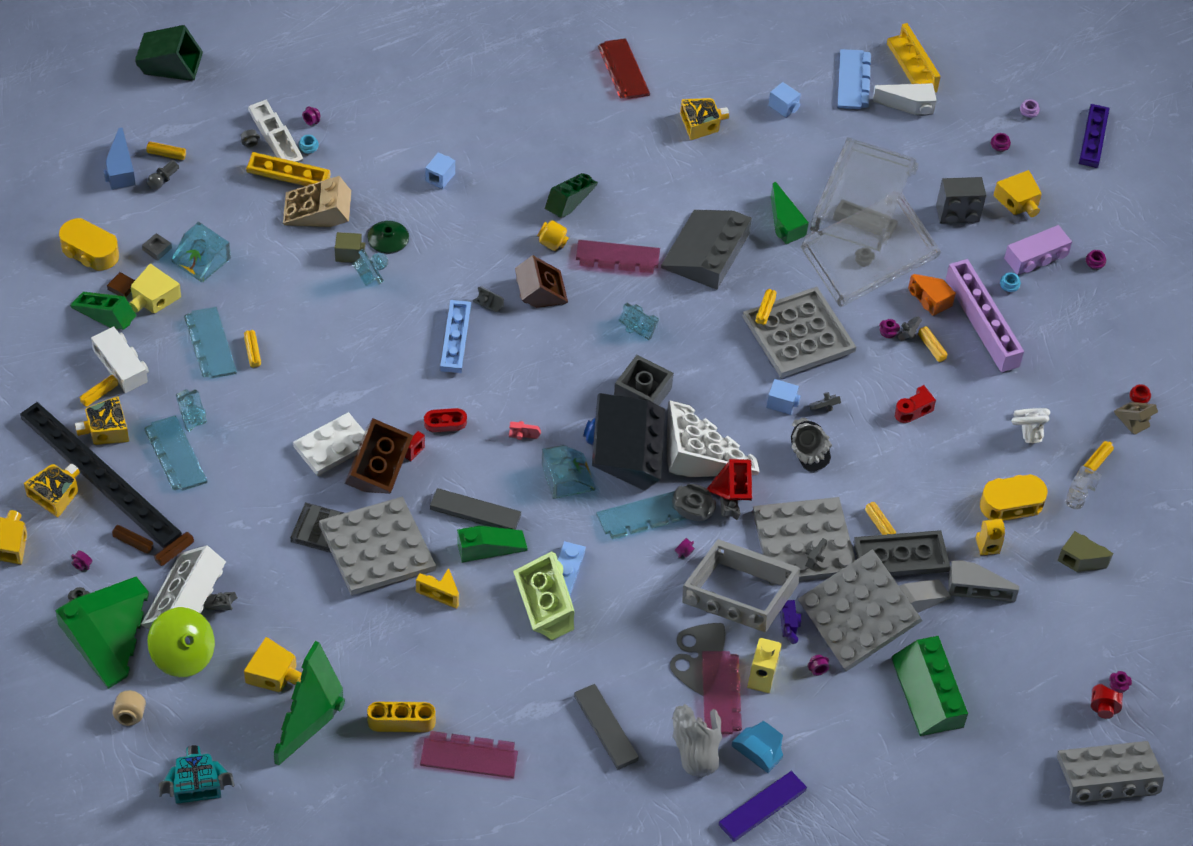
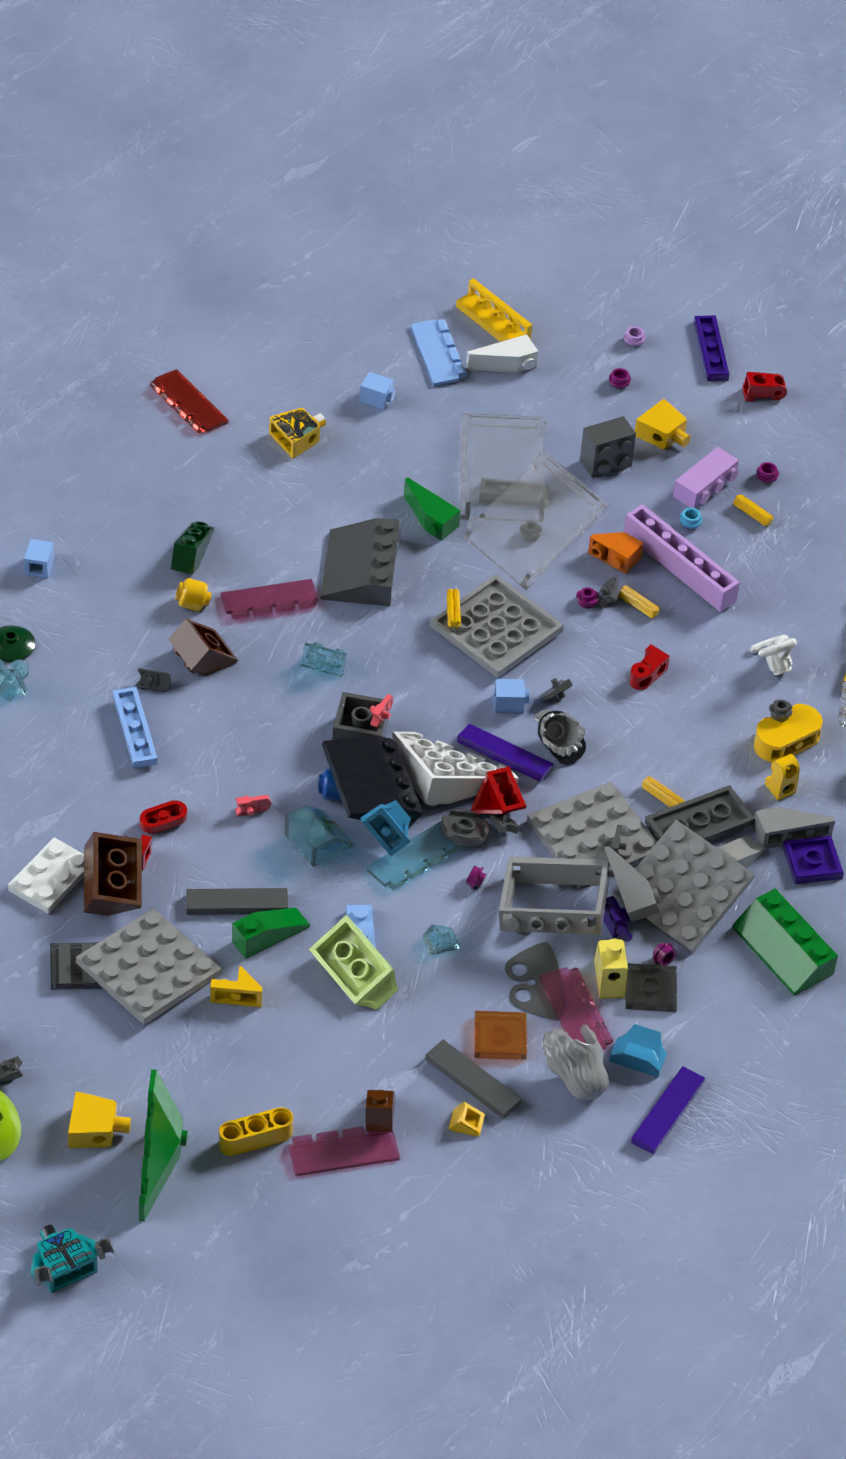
camera: 20 degrees left, 5 degrees down
(511, 730) = (380, 1110): none -> reddish brown slope
(585, 761) = (466, 1120): none -> yellow slope
(625, 483) = (389, 826): none -> dark azure slope
(632, 594) = (440, 939): none -> clear light blue slope
(646, 694) = (500, 1035): none -> clear orange tile
(659, 381) = (381, 711): none -> coral piece
(758, 445) = (505, 752): none -> dark purple tile
(795, 691) = (651, 988): none -> clear smoke tile
(812, 604) = (634, 888): none -> light grey slope
(988, 618) = (813, 859): none -> dark purple tile
(1010, 480) = (780, 710): none -> dark grey plate
(1069, 289) = (753, 510): none -> yellow axle
(1125, 181) = (763, 386): none -> red leg

